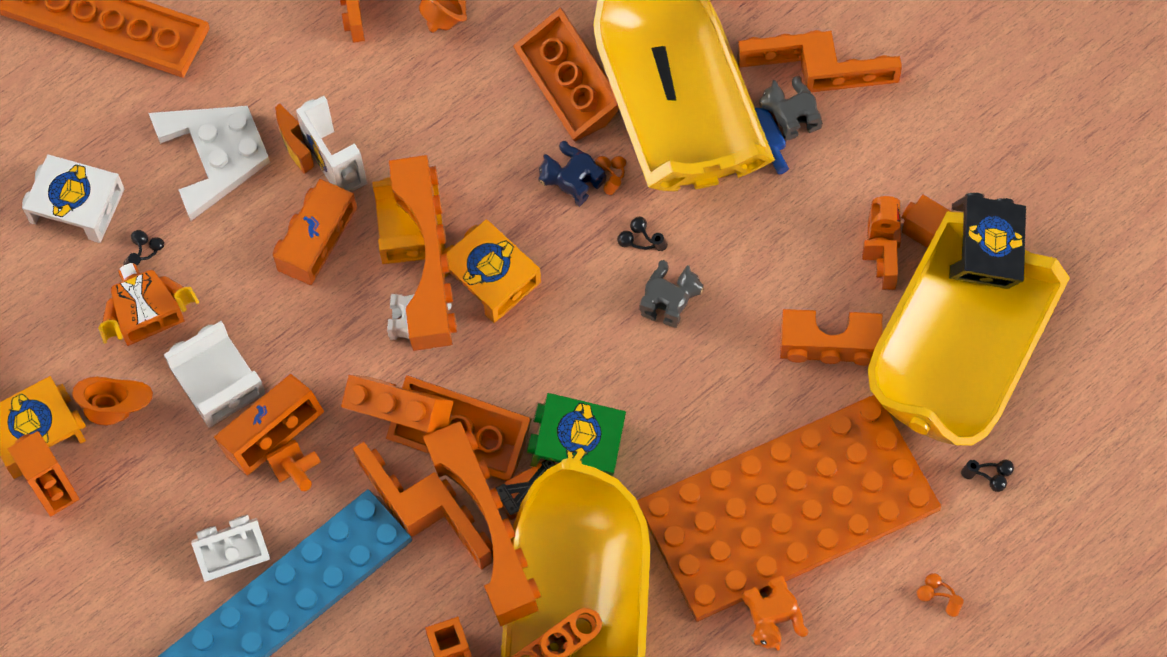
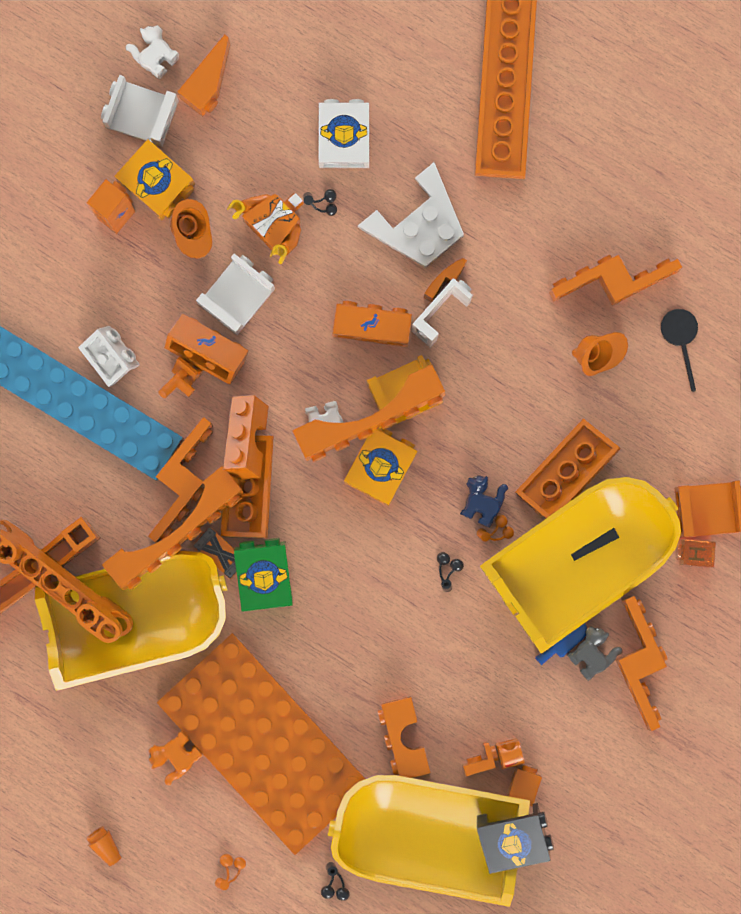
camera: 70 degrees right, 20 degrees up
(668, 296) = (401, 605): dark grey animal -> none

